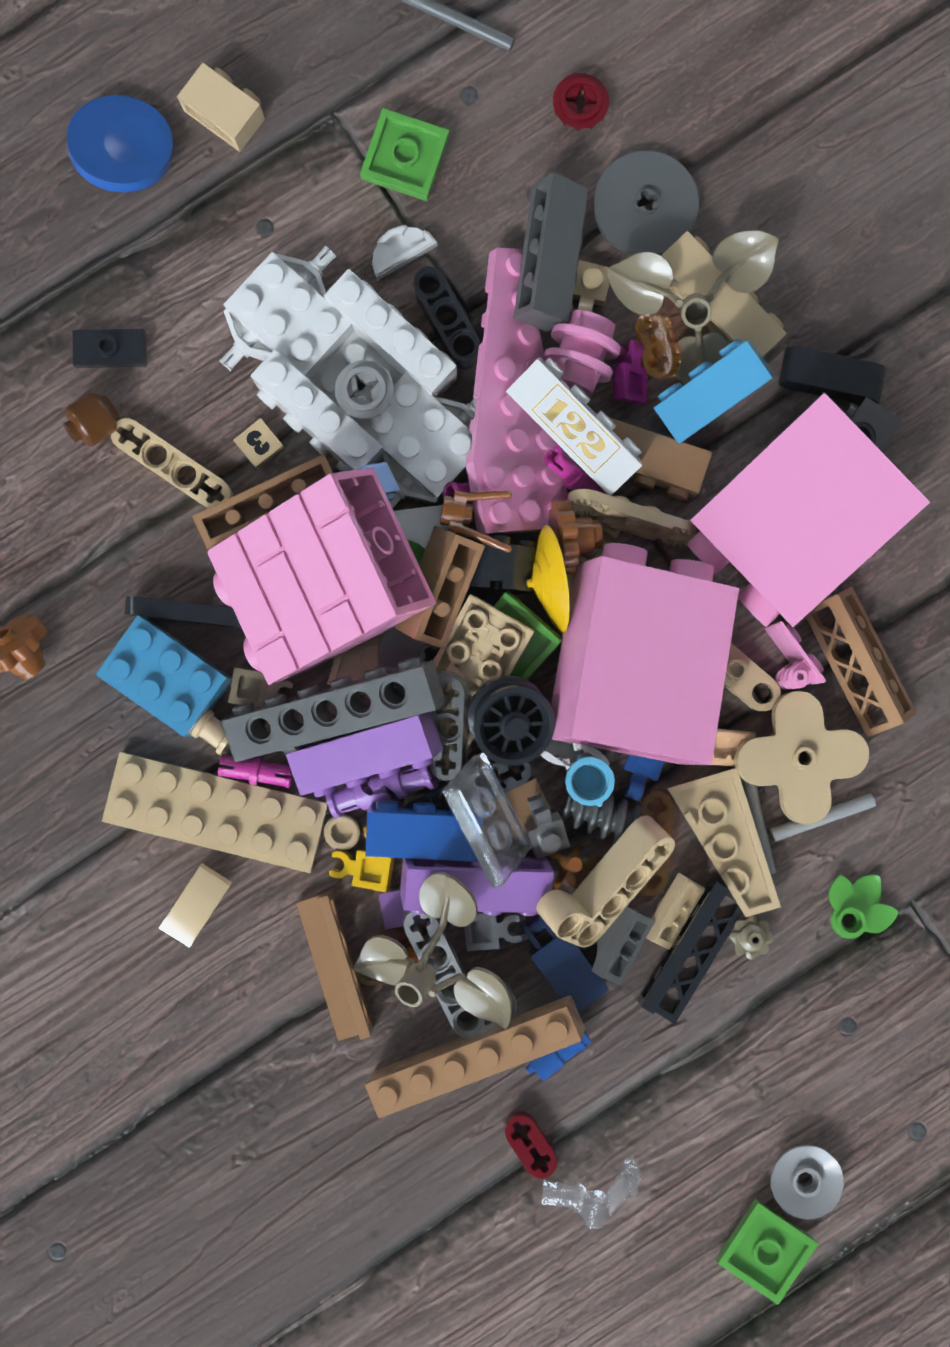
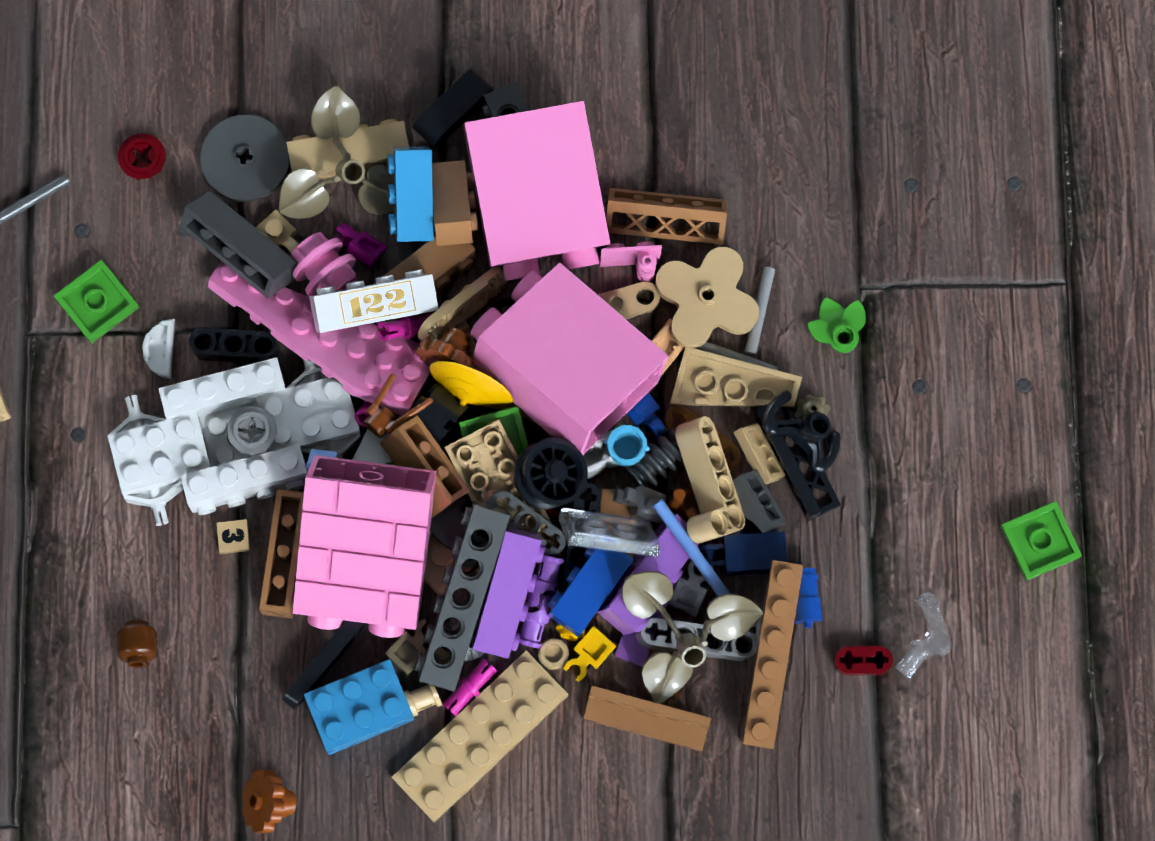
camera: 60 degrees left, 10 degrees down
(109, 348) = (92, 600): black plate -> none
(170, 467) = (209, 613): tan beam -> none
(195, 905) = (538, 791): tan slope -> none
(526, 912) = (690, 548): none -> medium blue bar
(658, 345) = (352, 210): clear orange beam -> none
(725, 946) = (805, 432): none -> black piece
(731, 438) = (453, 203): none -> medium nougat brick
(815, 1196) = (1017, 470): light grey dish -> none

